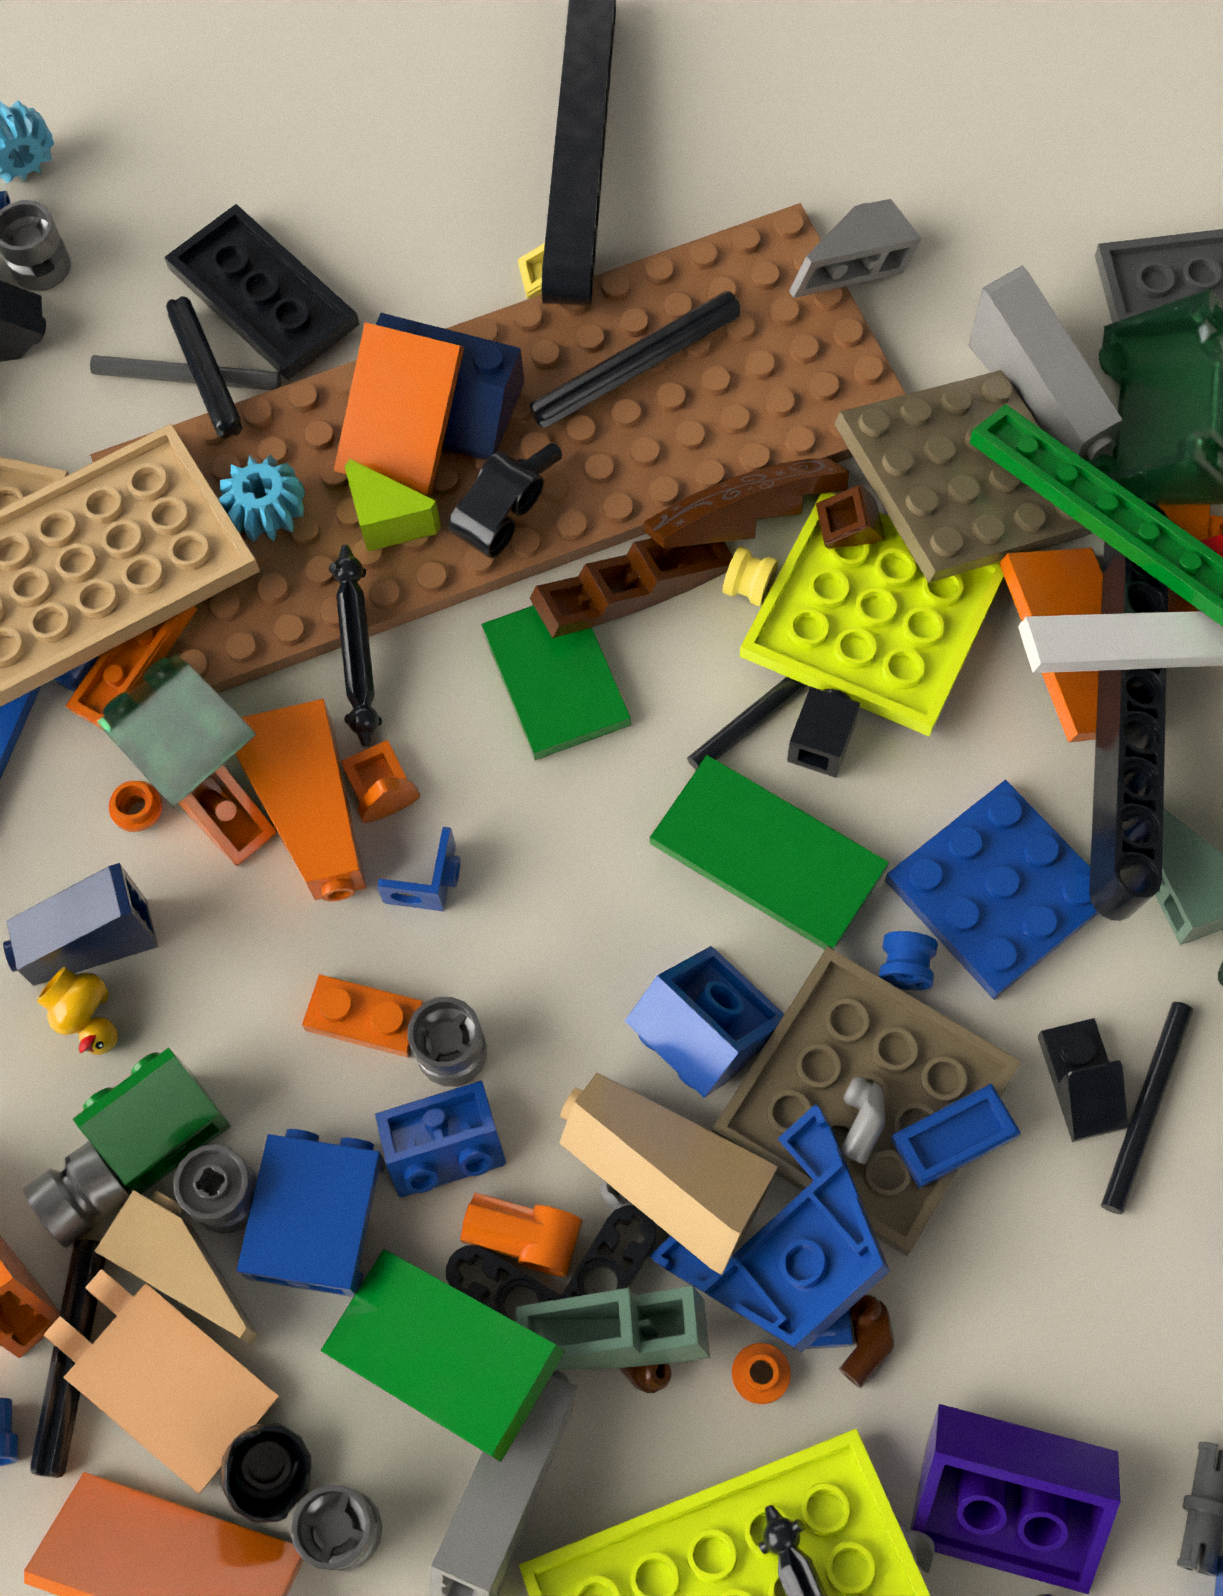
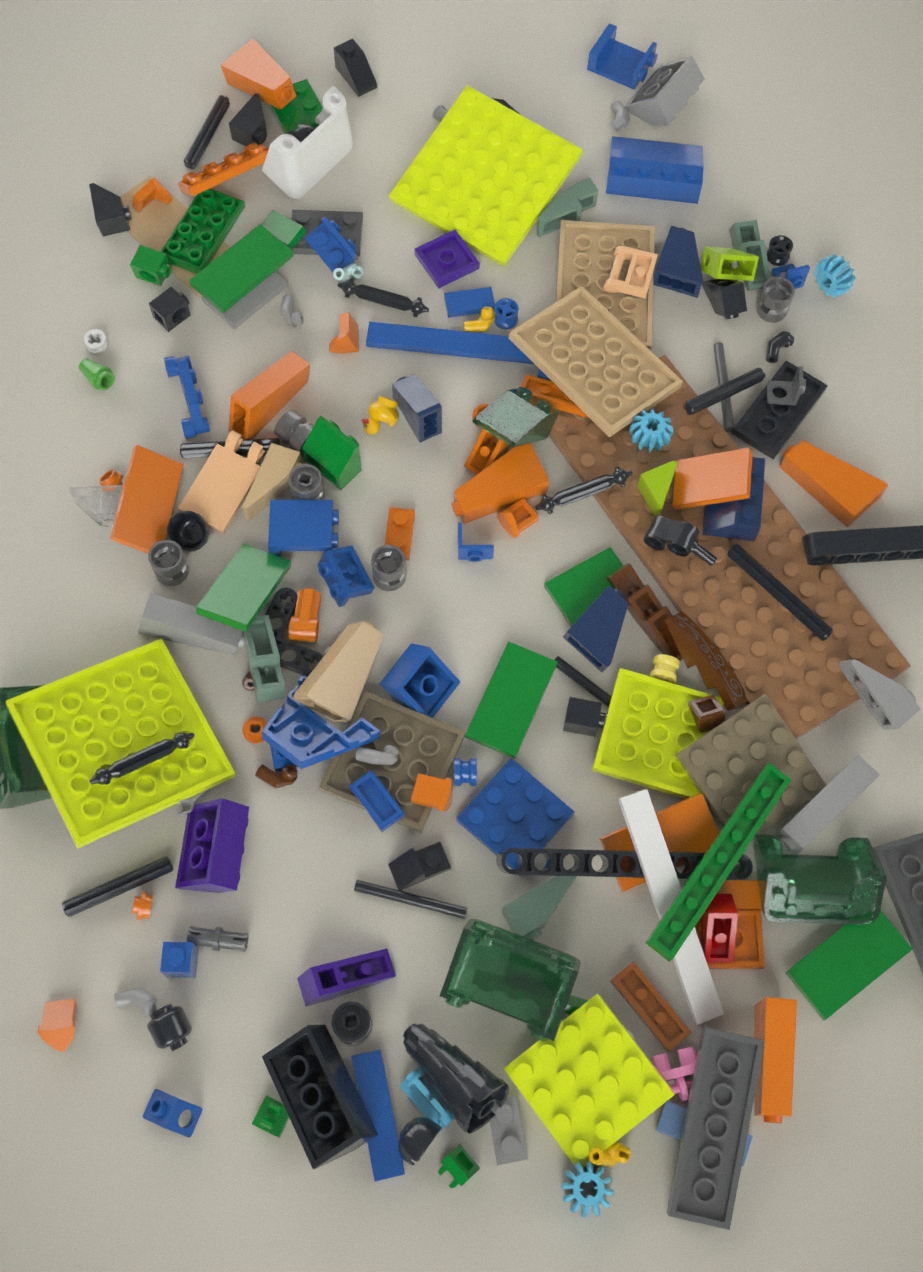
camera: 75 degrees right, 0 degrees up
(120, 269) = (782, 339): none -> black arm
(235, 250) = (792, 389): none -> dark grey bracket
(430, 239) = (832, 482): none -> orange slope
(653, 667) = (599, 628): none -> dark blue slope
(951, 1024) = (433, 792): none -> orange tile

